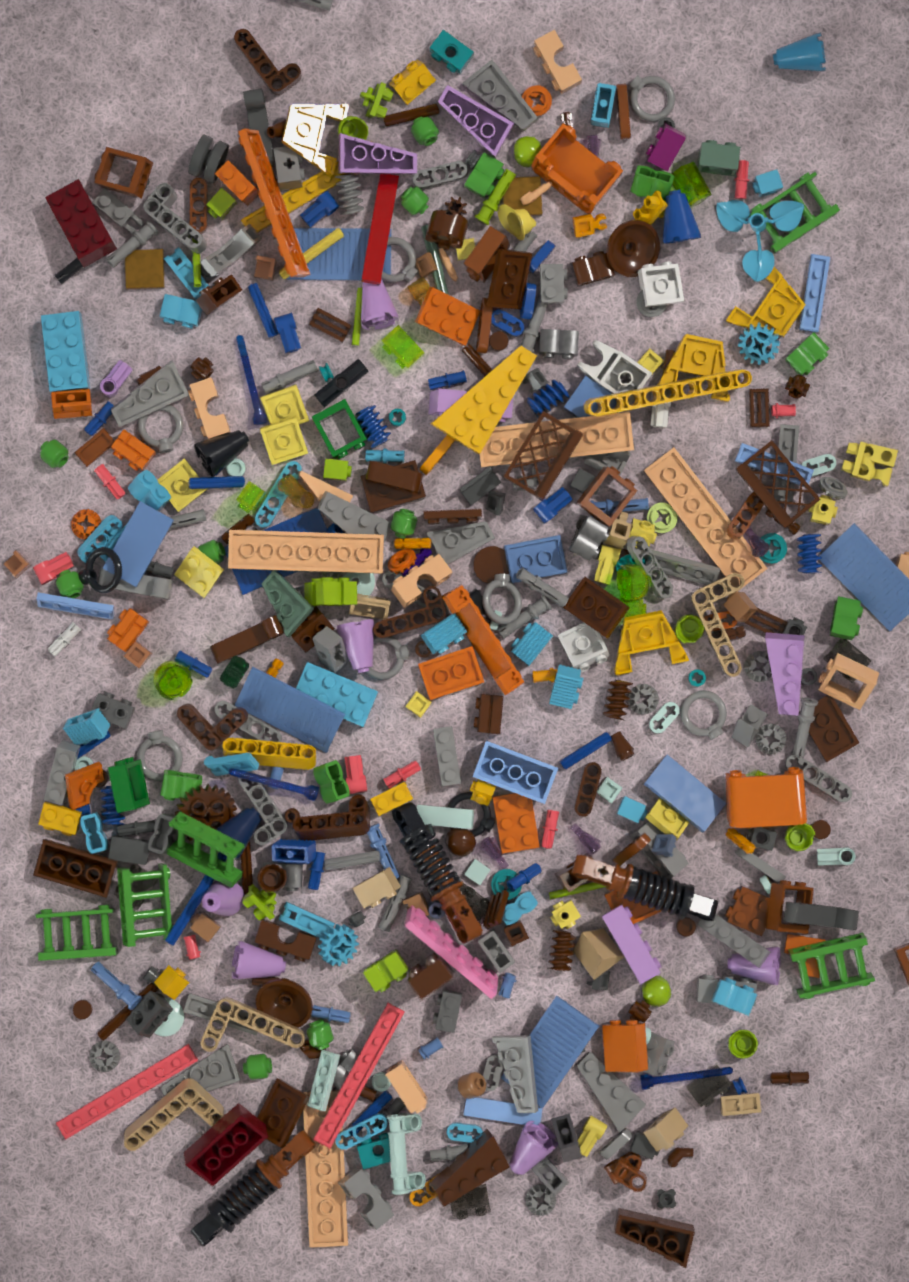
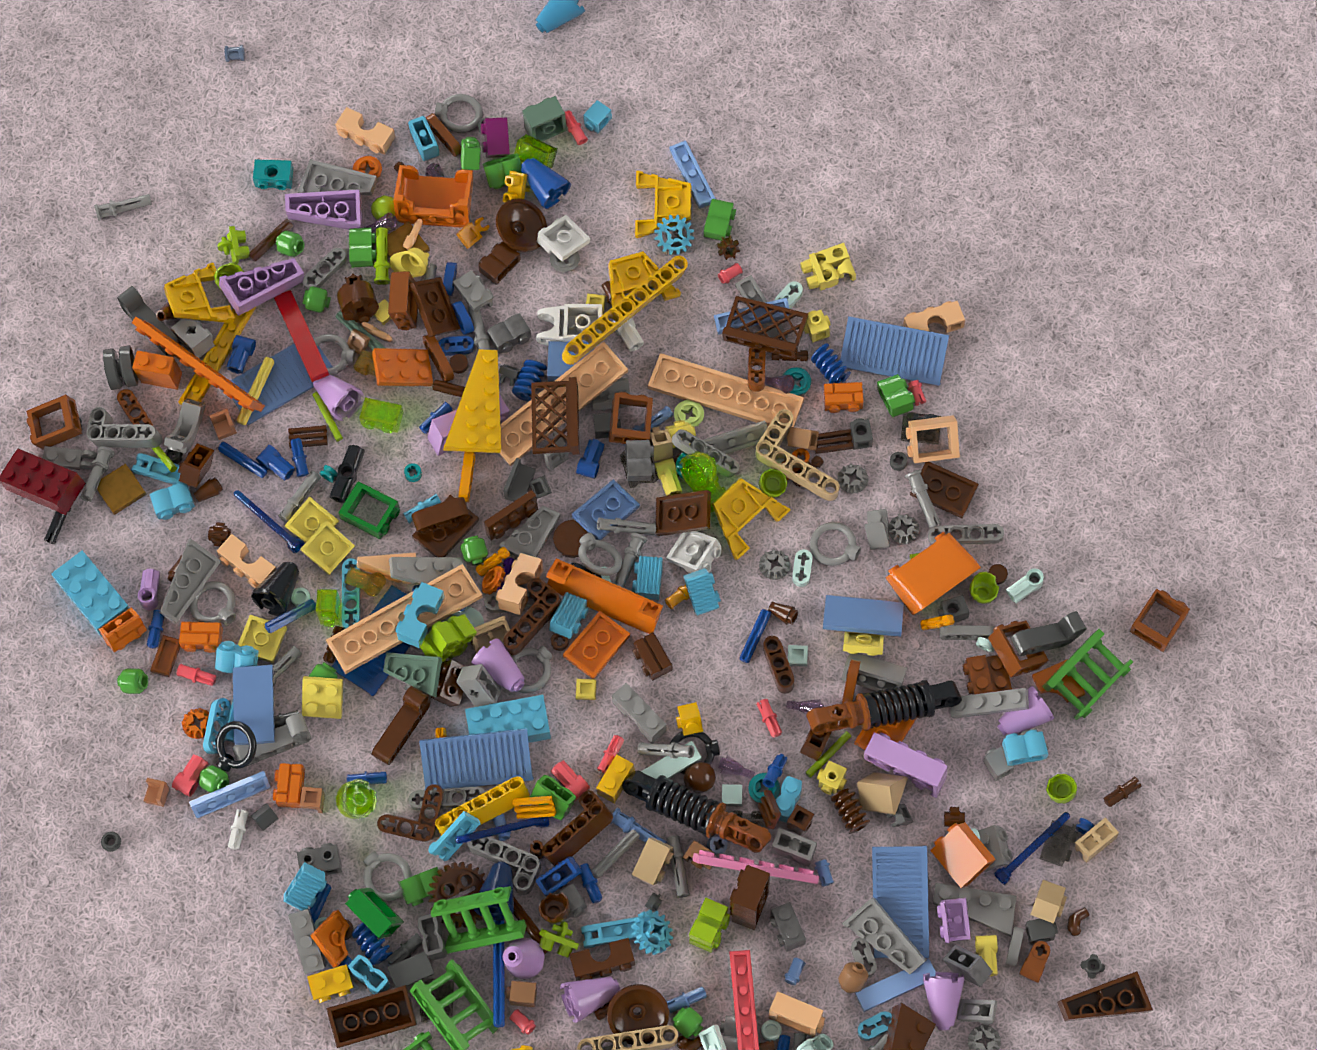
camera: 30 degrees left, 20 degrees down
(92, 641) = (264, 817): none -> dark grey slope
(217, 320) = (208, 490): none -> reddish brown cone
(221, 204) = (153, 398): lime brick -> none
(234, 672) = (407, 759): clear green gear -> none
(263, 60) = (98, 266): reddish brown beam -> none
(310, 341) = (299, 458): none -> blue axle
(310, 782) = (535, 809): none -> light orange tile
(331, 549) = (425, 599): none -> medium azure arch
(337, 470) = (388, 542): lime brick -> none
(350, 193) = (257, 325): light grey piece -> none
(373, 426) = (397, 491): blue piece -> none
(412, 81) = (255, 214): yellow bracket -> none
(452, 809) = (672, 750): none -> light grey pin
(473, 159) = (344, 241): dark grey bush -> none
(515, 772) = (706, 685): light blue slope -> none
(515, 822) = (736, 732): orange plate -> none
(517, 166) = (387, 221): none -> cone
(583, 1092) = (955, 919): none -> lavender bracket
(617, 699) = (751, 577): reddish brown piece -> none
(627, 1175) = (1043, 960): dark orange piece -> none
(632, 151) = (470, 154): none -> bright green brick
(632, 809) = (828, 657): medium azure brick -> none
(656, 991) = (956, 794): lime hair -> none
(664, 845) = (875, 661): sand blue tile -> none
(686, 927) = (942, 725): reddish brown tile -> none
(694, 683) = (807, 525): teal bush -> none
(735, 213) = (627, 128): medium azure plant -> none
(751, 406) = (718, 296): reddish brown tile -> none
(786, 660) = (875, 459): lavender wedge -> none
(801, 589) = (843, 397): none -> orange brick
(810, 220) = (644, 138): bright green fence -> none
(832, 487) = (812, 303): light grey gear -> none
(866, 625) = (915, 388): none -> coral pin

